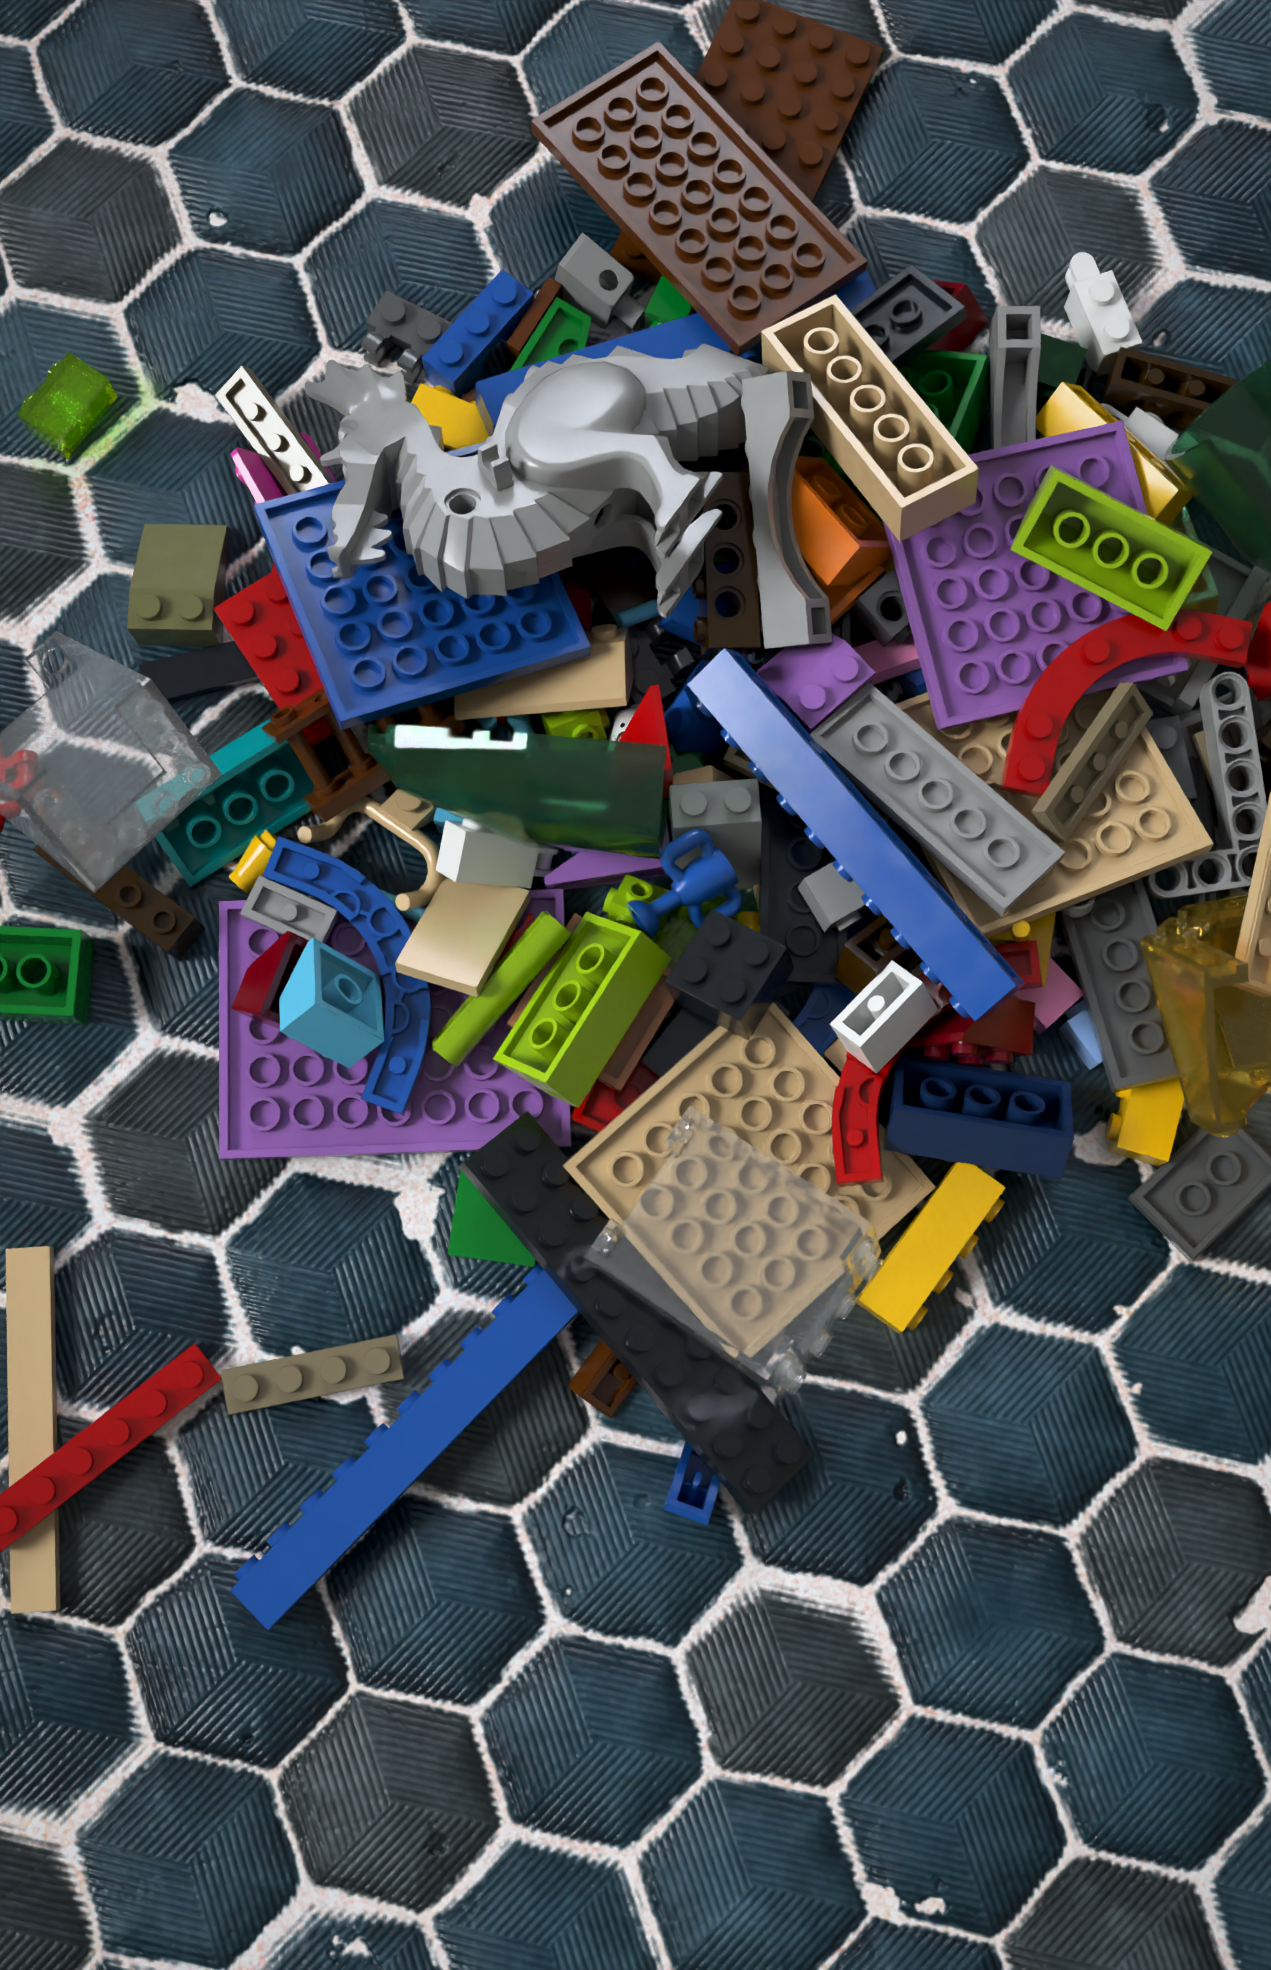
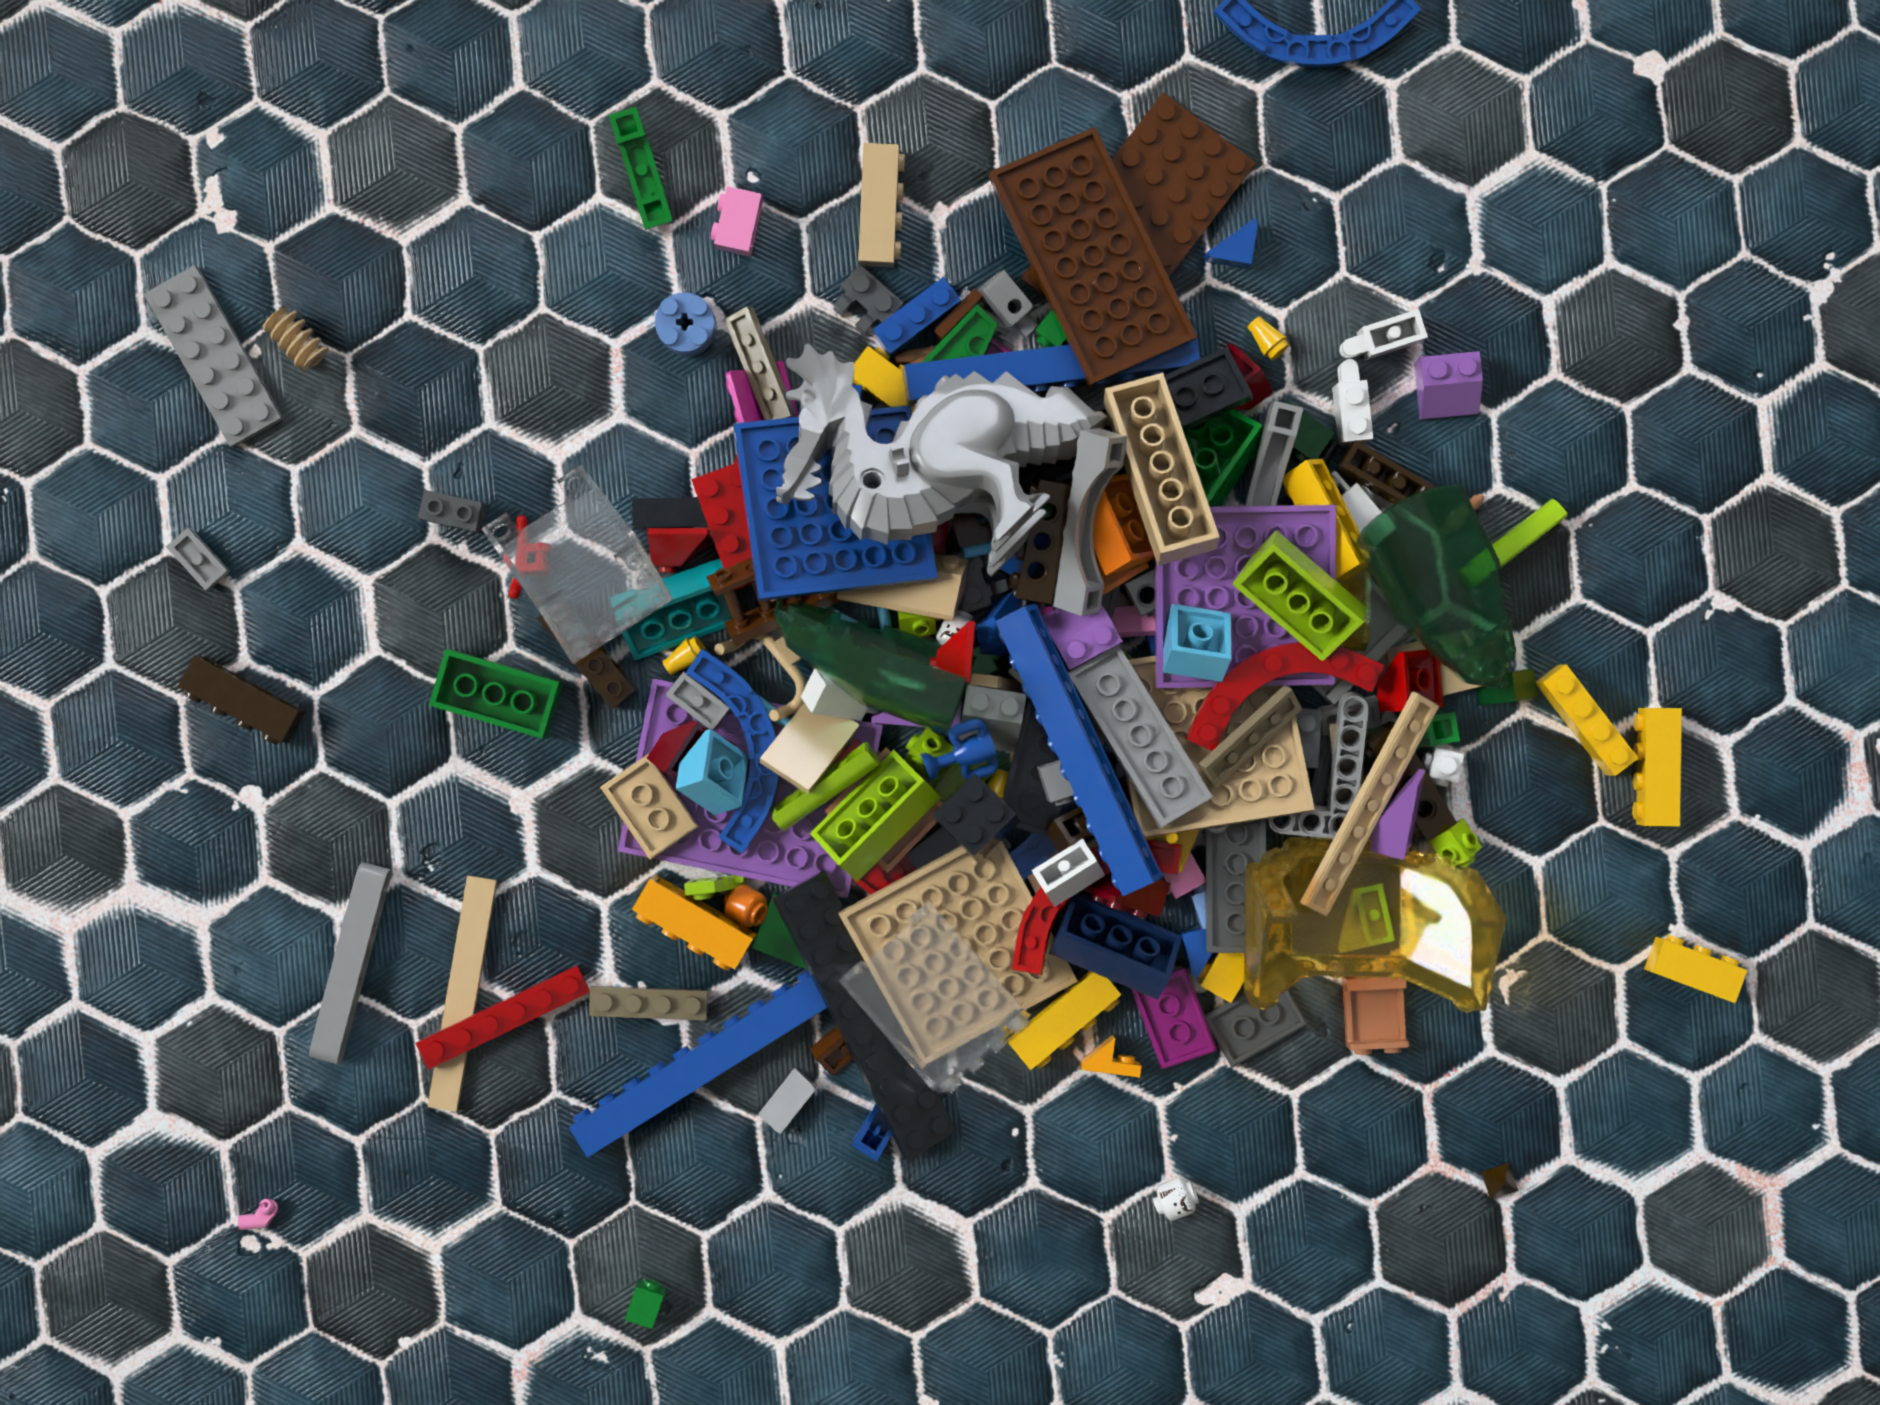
camera: 10 degrees right, 10 degrees up
(60, 232) = (641, 168): none -> green slope
(67, 404) = (619, 297): clear neon green brick -> none
(164, 416) = (674, 312): none -> medium blue brick
(178, 584) = (671, 445): olive slope -> none
(207, 269) = (737, 221): none -> bright pink brick
(216, 703) = (676, 546): none -> red slope
(252, 1082) = (649, 807): none -> tan tile
(352, 1230) = (694, 922): none -> light orange brick
(359, 1176) = (706, 887): none -> lime wing
(394, 209) = (879, 205): none -> tan brick
(407, 1841) = (646, 1303): none -> green brick
(424, 1194) = (745, 906): none -> orange head
(552, 1471) = (787, 1100): none -> light grey slope
(886, 157) = (1236, 249): none -> blue slope
(962, 259) = (1270, 340): none -> yellow cone
(983, 647) = (1197, 643): none -> medium azure slope
(1003, 1293) = (1102, 1061): none -> light orange slope
(1092, 1212) = (1176, 1021): none -> magenta tile
(1095, 1101) = (1195, 949): none -> blue slope
(1121, 214) = (1385, 336): none -> white brick
(1168, 1476) = (1176, 1199): none -> white head
(1220, 259) = (1448, 385): none -> medium lavender slope

